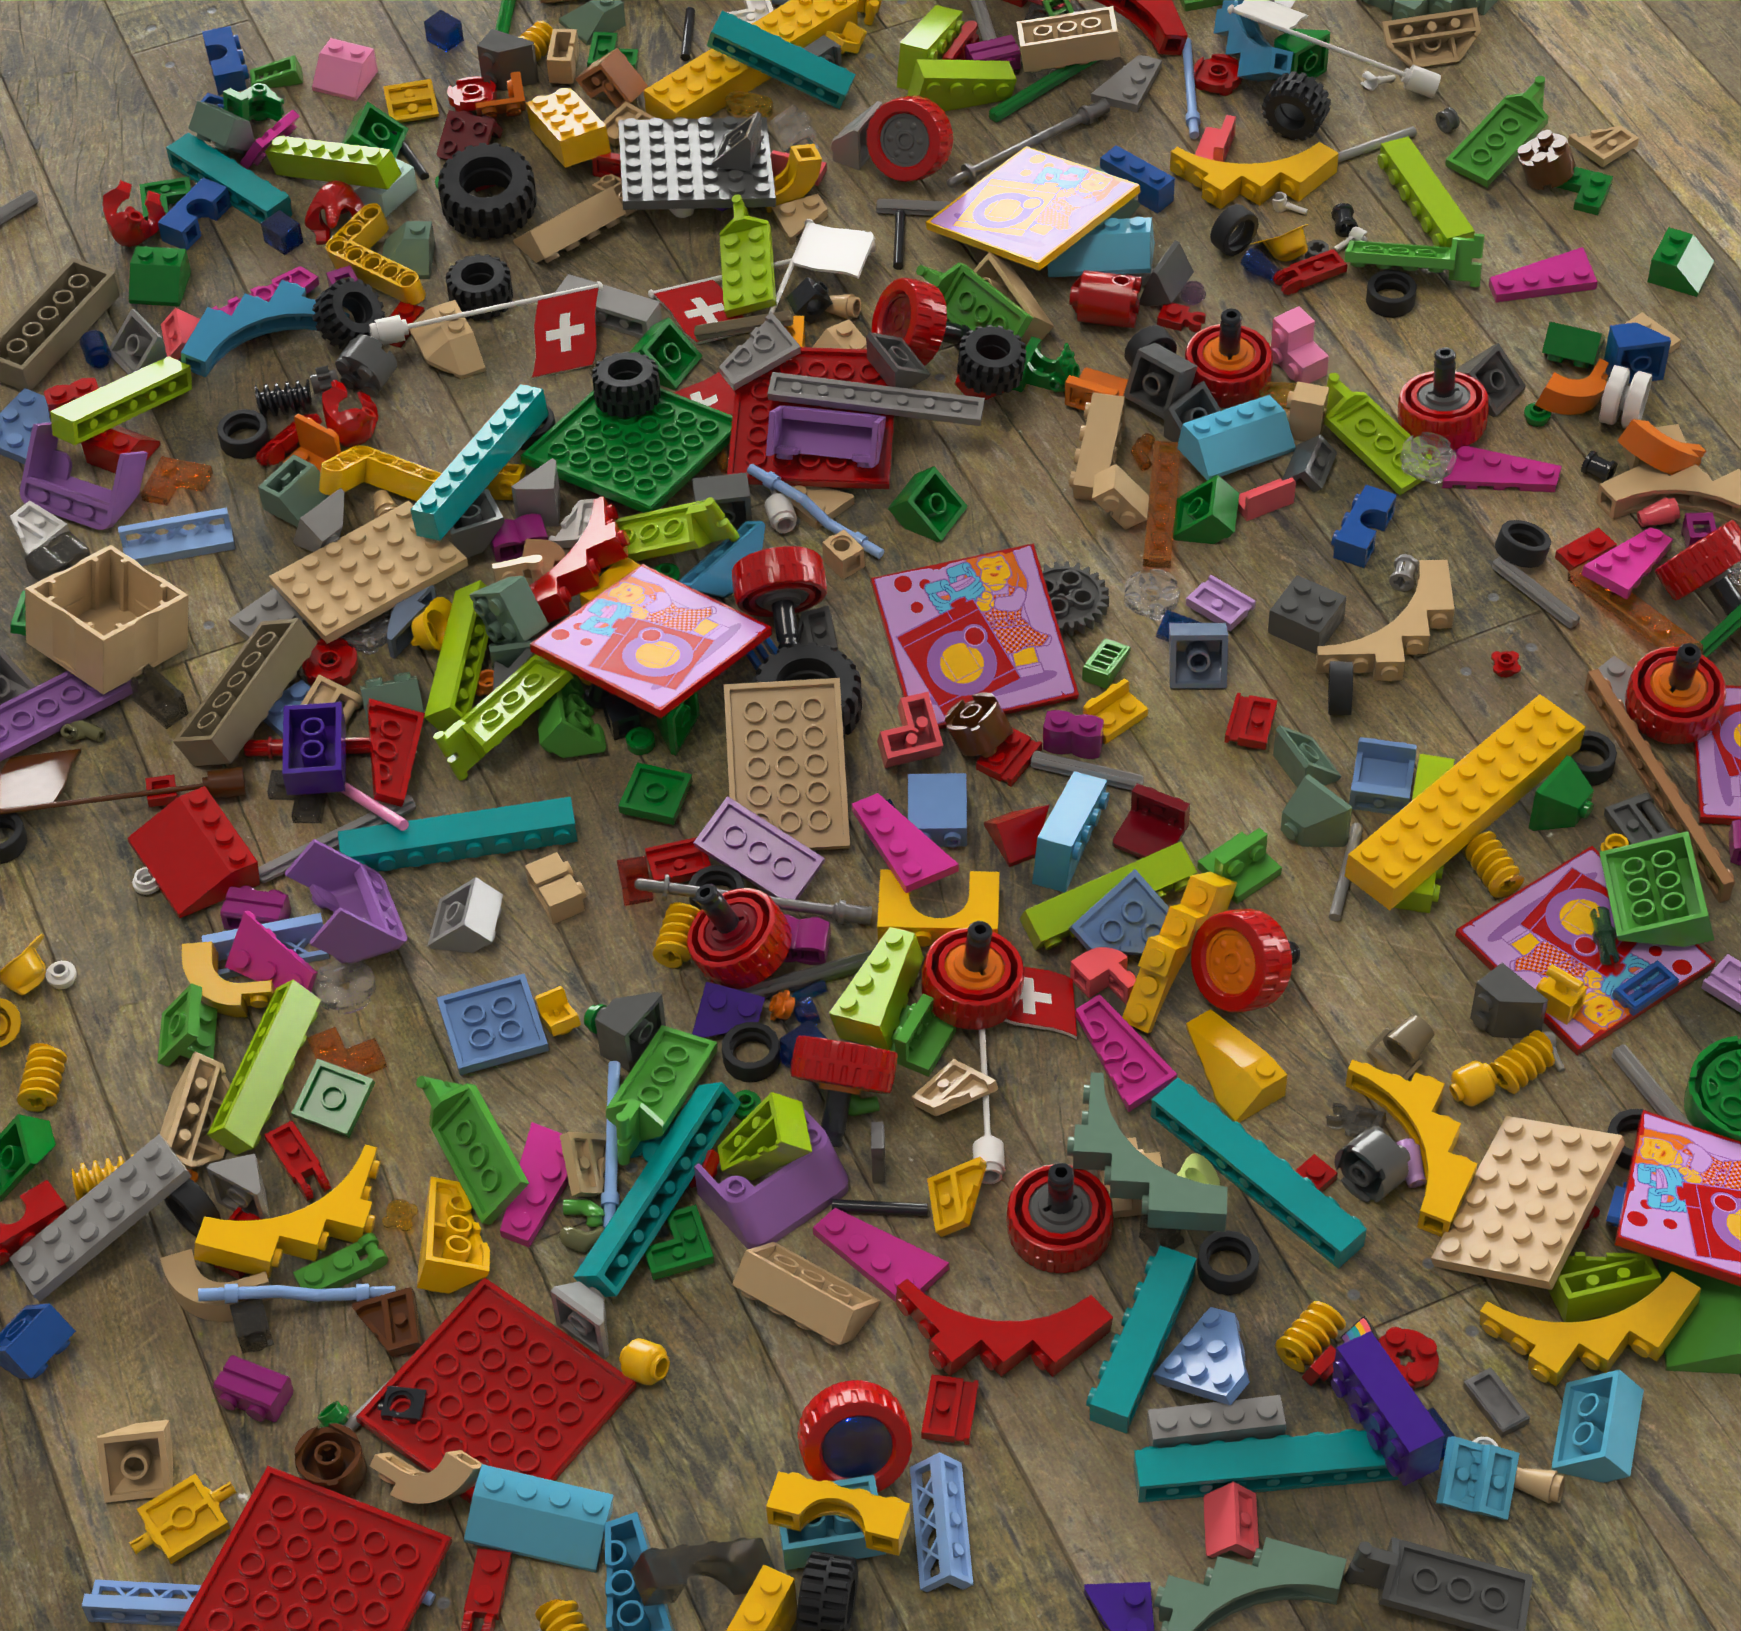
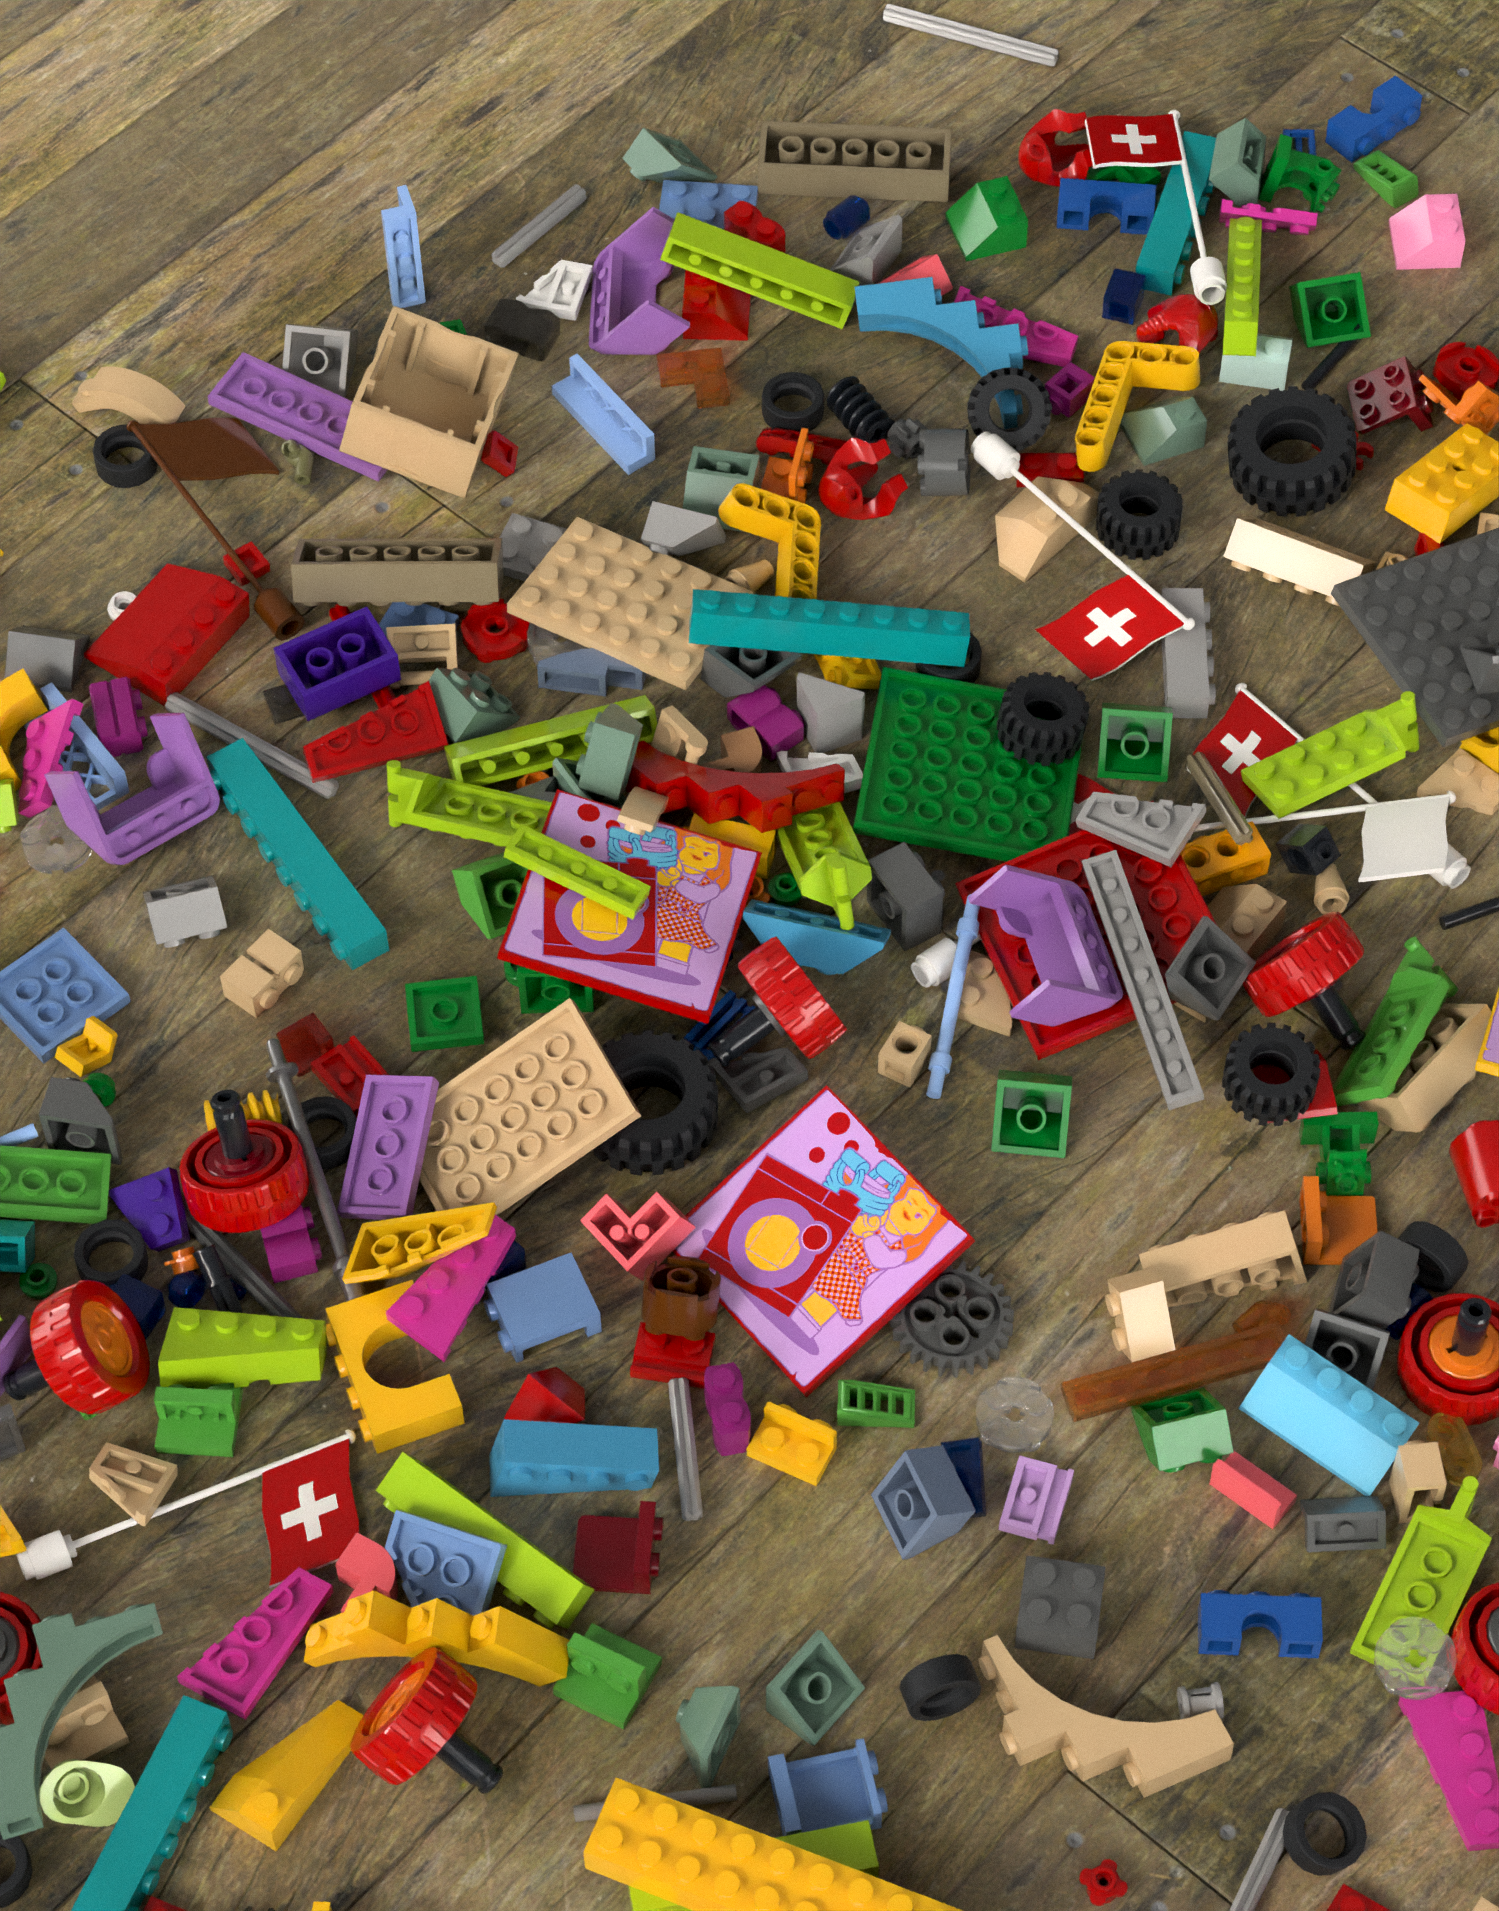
camera: 65 degrees right, 5 degrees up
(159, 697) = (374, 504): clear smoke hinge -> none
(159, 943) = (46, 655): none -> slope
(169, 167) = (1154, 143): none -> flag
(375, 807) = (296, 755): bright pink bar -> none
(411, 101) = (1421, 320): yellow slope -> none
(431, 624) = (585, 692): yellow piece -> none
(578, 604) = (642, 810): none -> tan slope
(616, 648) = (577, 871): none -> lime plate
(813, 986) = (217, 1279): none -> black axle
(861, 849) = (411, 1242): none -> yellow wedge
(973, 977) = (285, 1436): red wheel -> none
(1251, 721) = (850, 1604): red plate -> none

